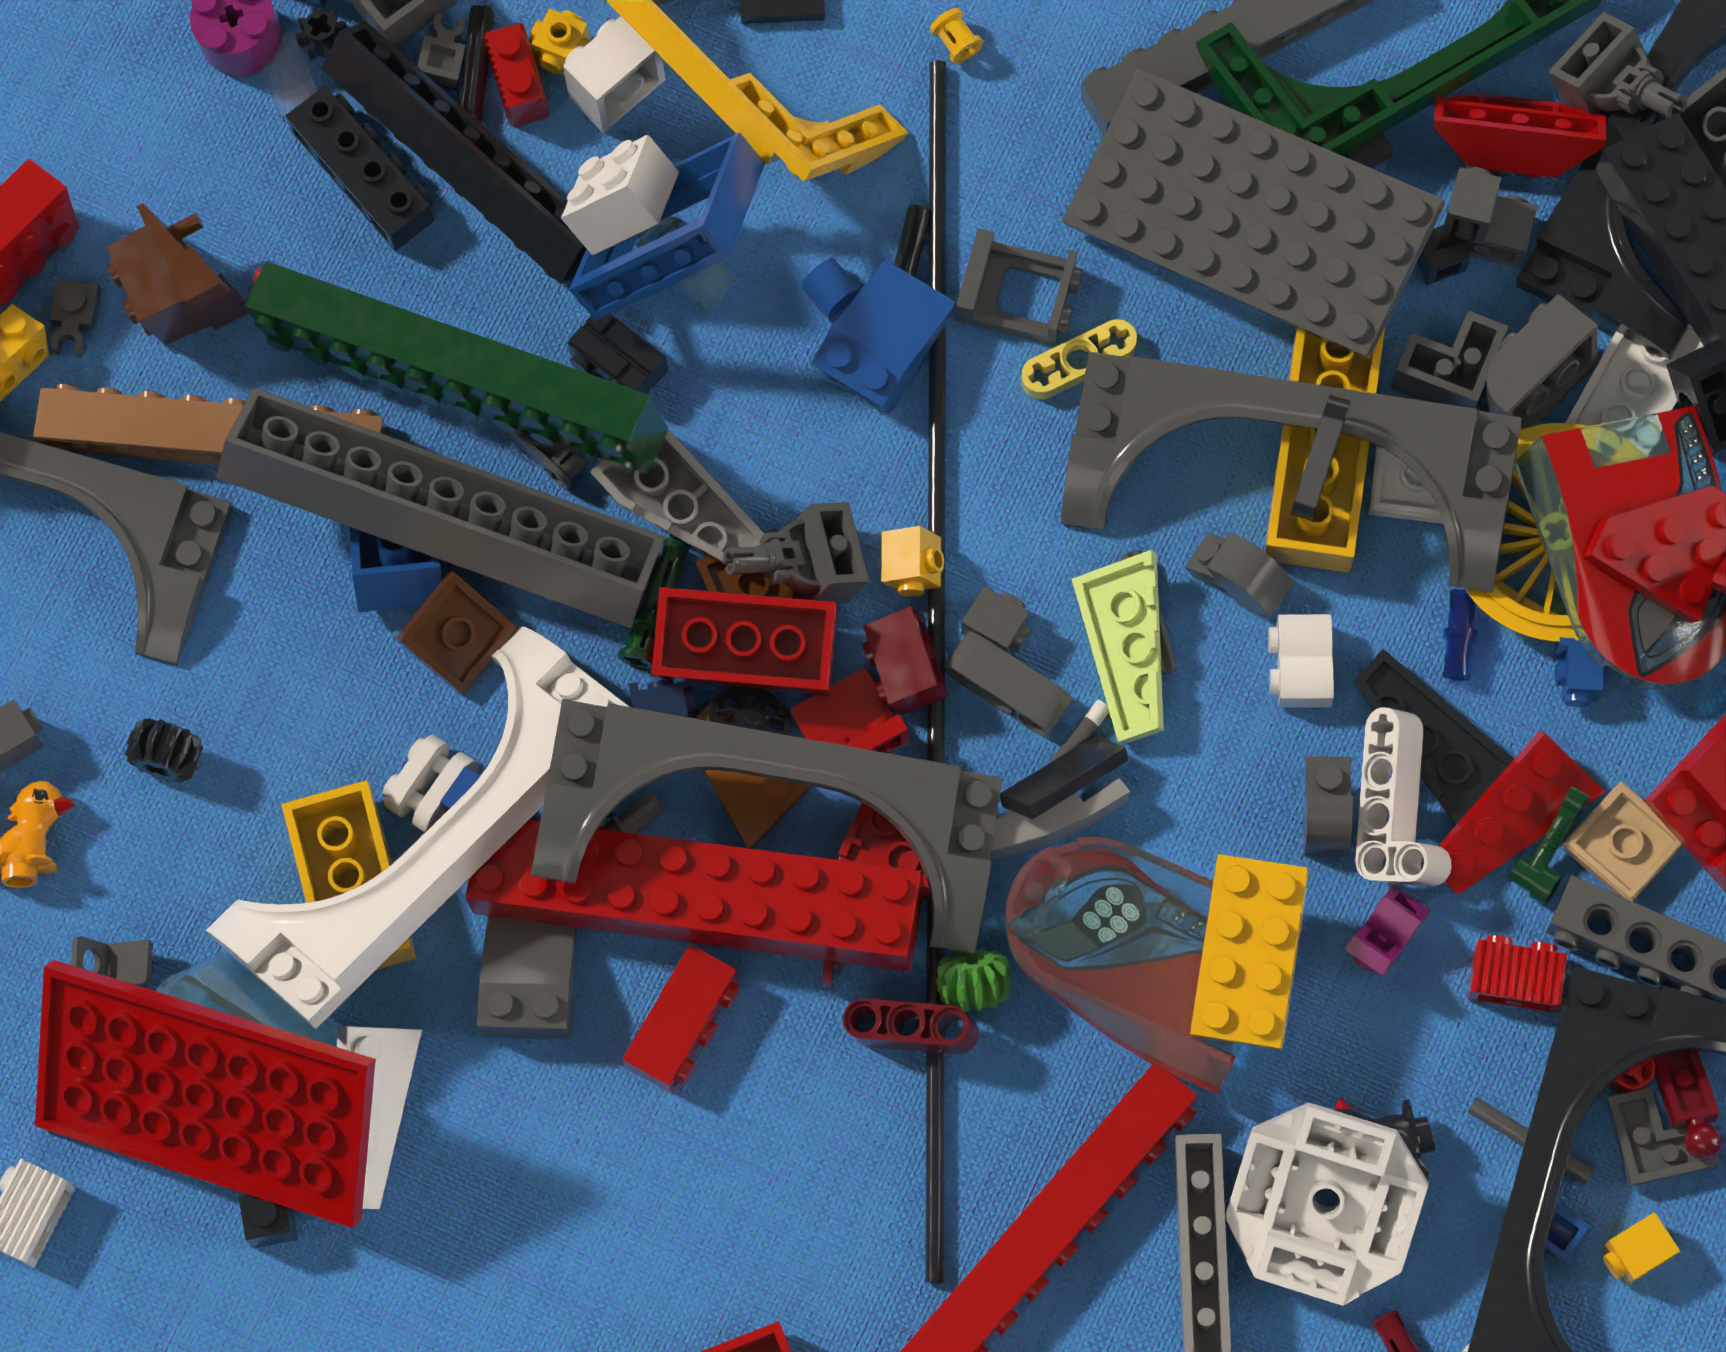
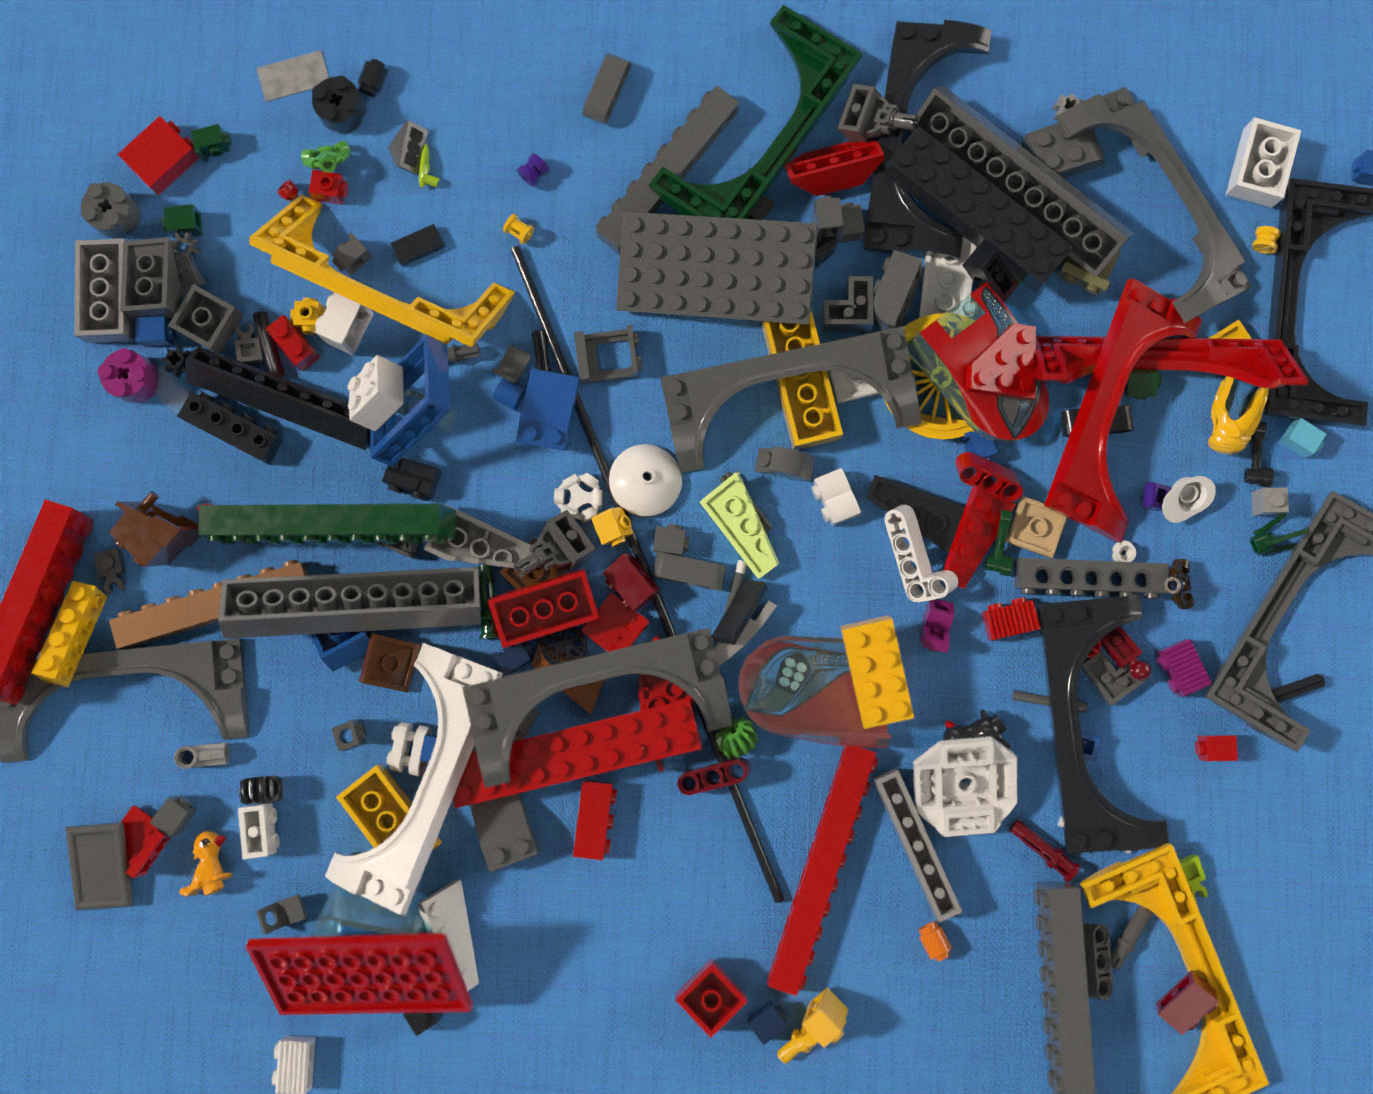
camera: 25 degrees left, 10 degrees up
(96, 662) = (203, 755): none -> light grey piece
(131, 812) = (258, 830): none -> white brick
(358, 725) = (358, 733): none -> dark grey bracket
(783, 193) = (462, 352): none -> dark grey axle
(857, 244) = (513, 364): none -> dark grey bracket
(877, 495) = (579, 496): none -> white piece
(990, 536) = (642, 496): none -> white dish
(1046, 363) = (637, 389): light yellow beam -> none
(1320, 457) = (807, 389): black beam -> none
(1327, 806) = (882, 573): dark grey brick -> none
(1459, 636) = (910, 451): clear blue pin -> none
(1576, 743) = (988, 476): none -> red beam
(1639, 1250) = (1128, 737): yellow brick -> none

